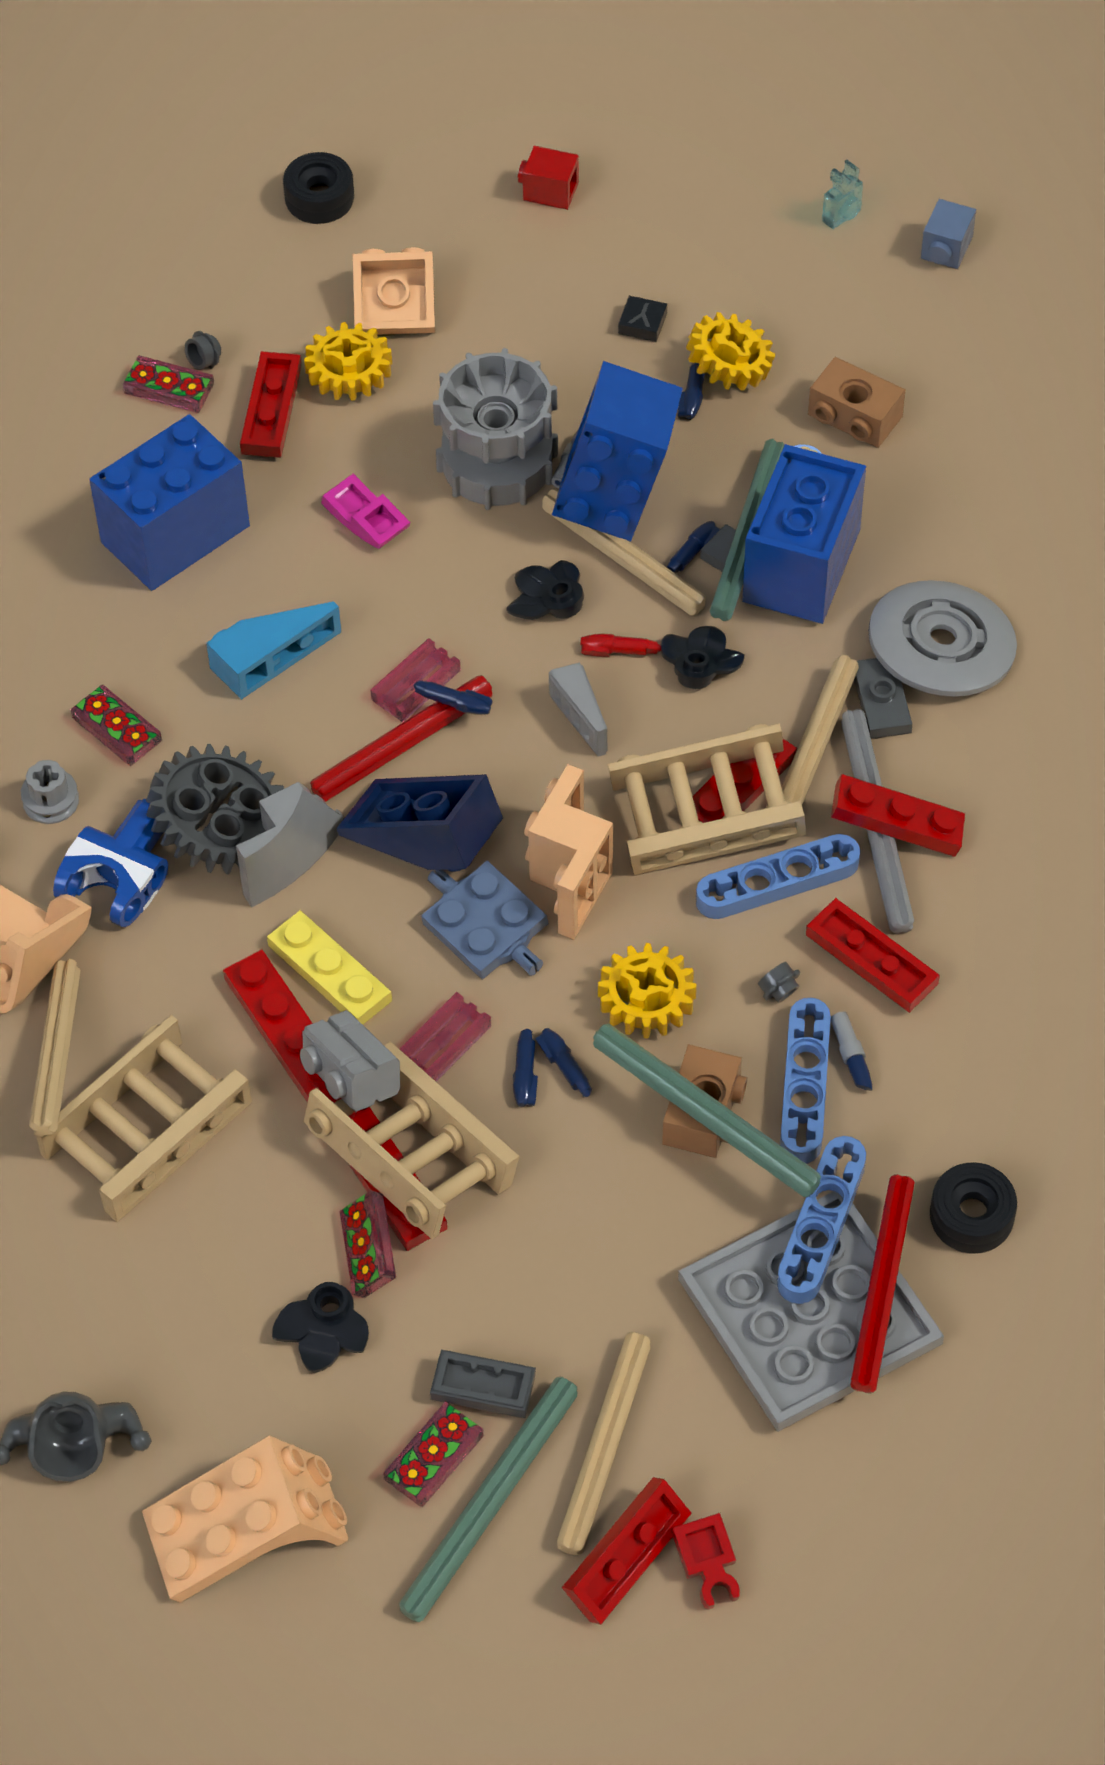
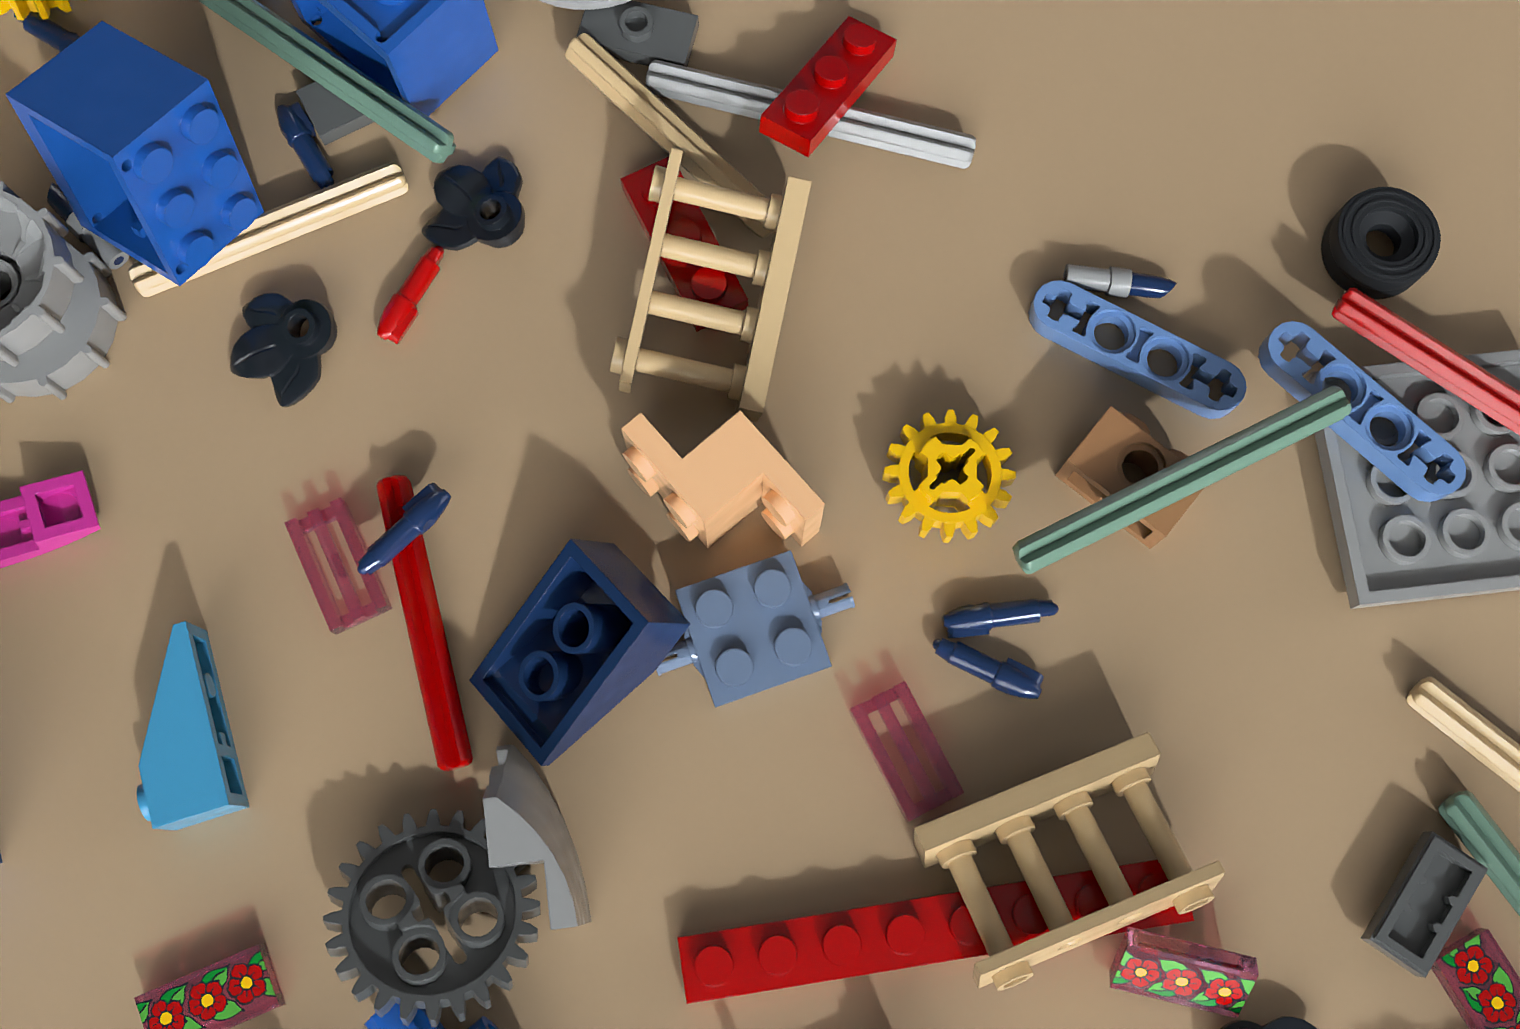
camera: 70 degrees left, 20 degrees up
(329, 967) = (737, 857): light yellow plate -> none
(350, 1061) = (941, 899): light grey brick -> none
(575, 698) = (483, 377): light grey slope -> none
(774, 870) = (842, 257): medium blue beam -> none
(779, 982) = (995, 319): dark grey plate -> none
(872, 955) = (1000, 200): red plate -> none

